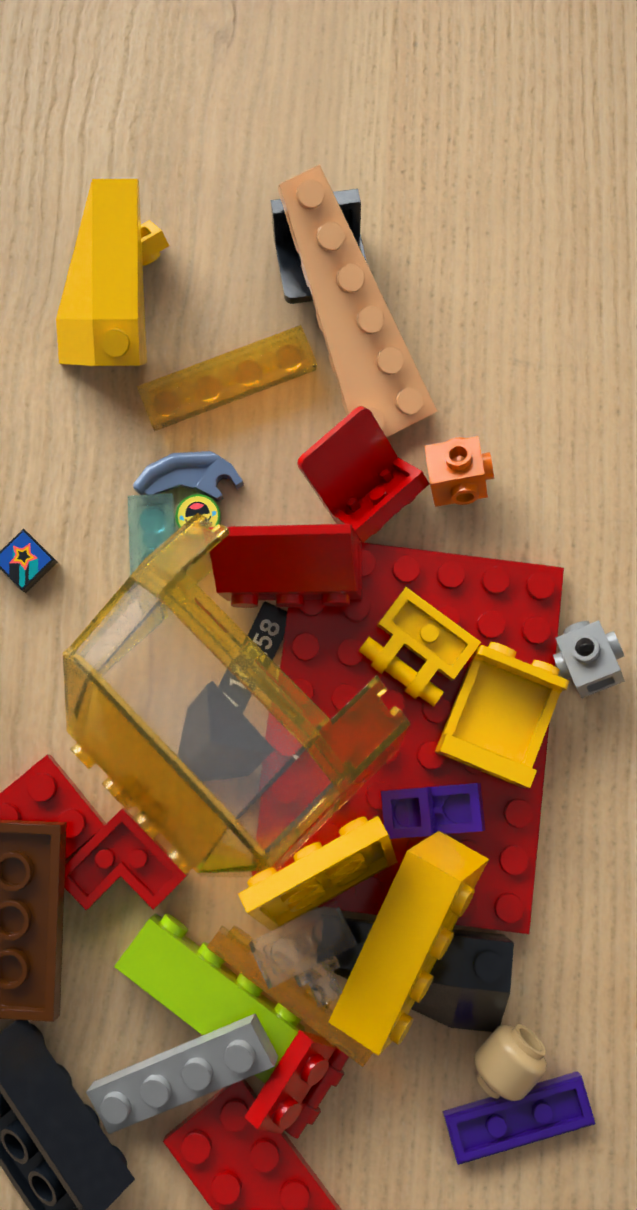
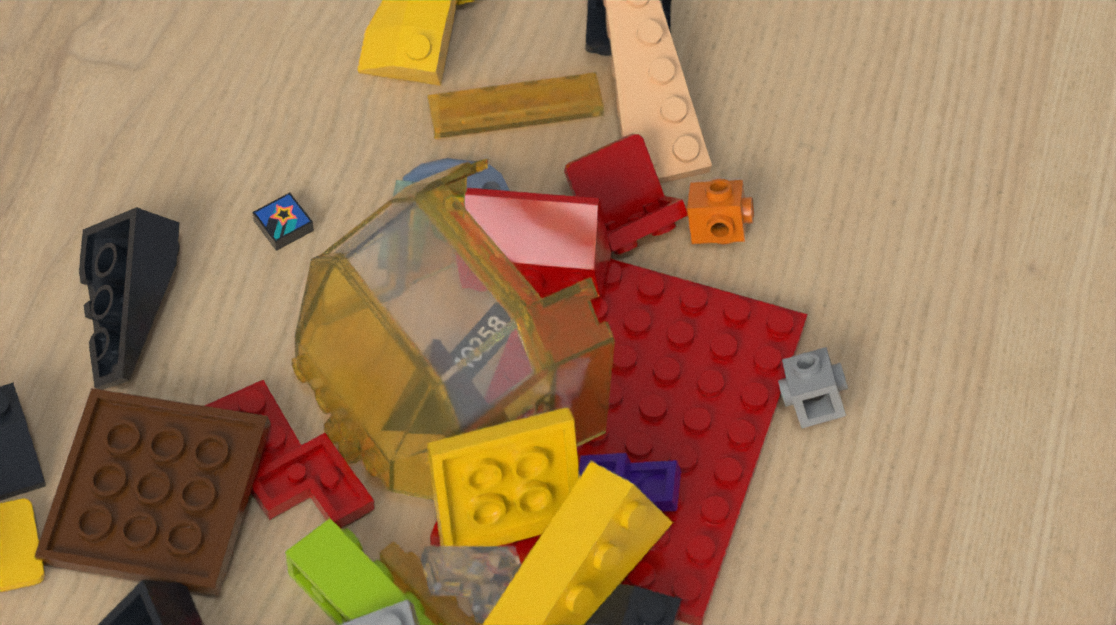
camera: 15 degrees right, 25 degrees down
(429, 636) = (659, 335): yellow plate -> none
(501, 714) = (714, 412): yellow panel -> none

